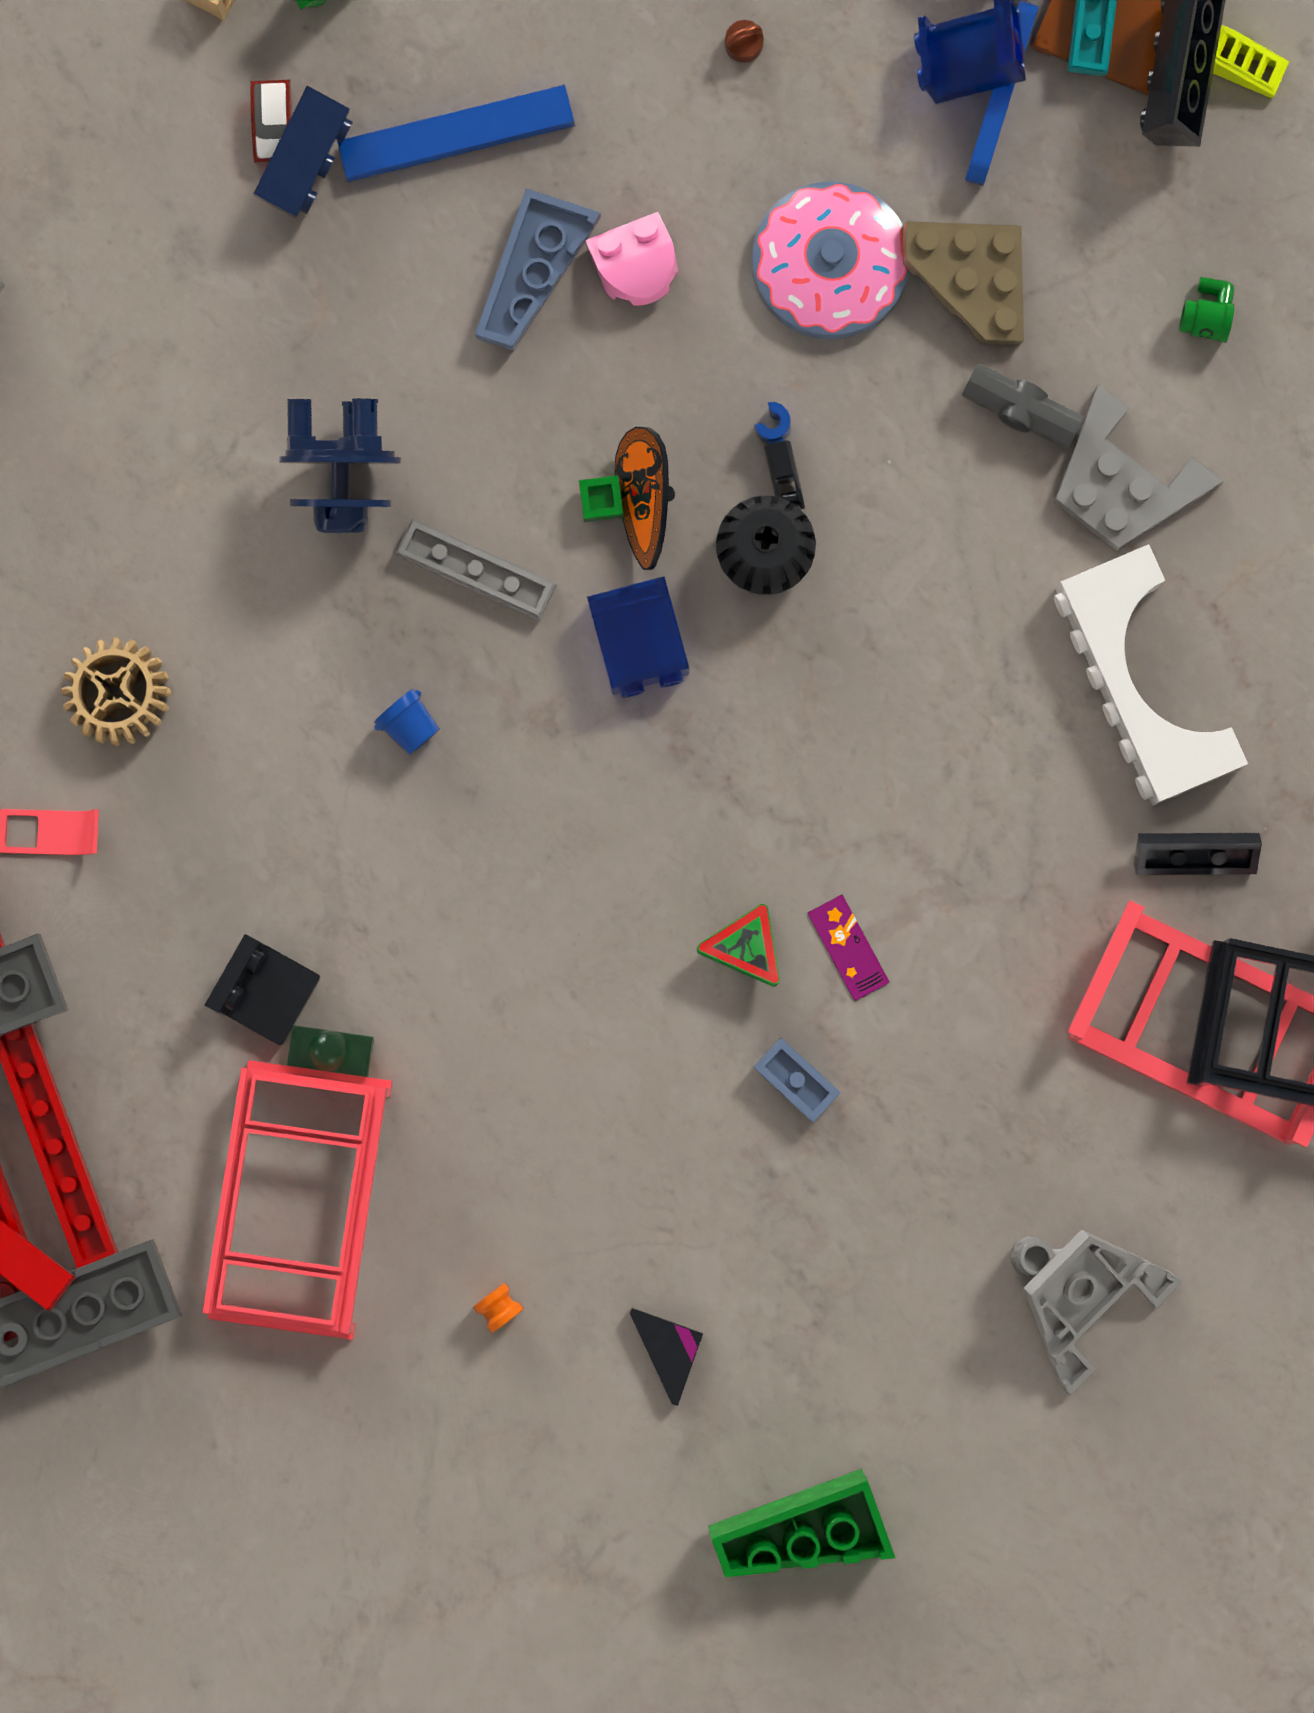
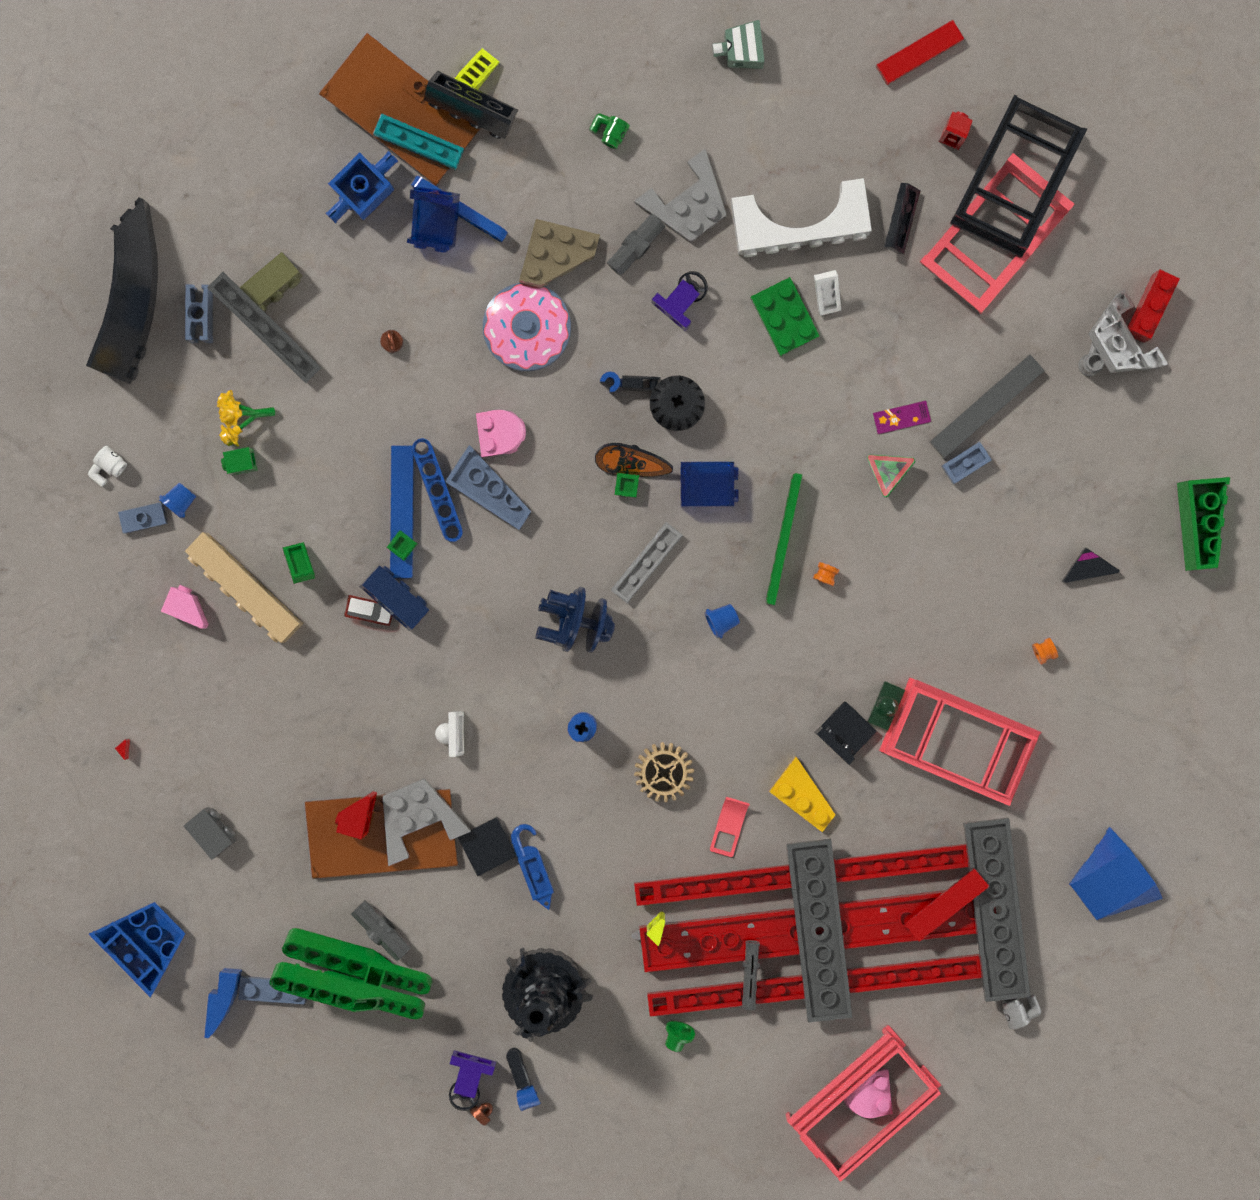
camera: 75 degrees left, 5 degrees up
(94, 315) = (452, 733): none -> white tile
(118, 1540) = (1113, 879): none -> blue wedge
(133, 946) = (802, 795): none -> yellow wing
(157, 526) = (574, 730): none -> blue piece
(397, 145) = (402, 545): none -> green tile
(527, 174) = (429, 481): none -> blue beam
(535, 883) = (826, 574): none -> orange wheel
(576, 793) = (783, 538): none -> green tile
(908, 1091) = (986, 406): none -> dark grey tile
(952, 507) = (681, 299): none -> dark purple piece
(969, 696) = (784, 316): none -> green plate
(1029, 754) = (827, 292): none -> white tile
(1166, 1338) = (1152, 305): none -> red brick

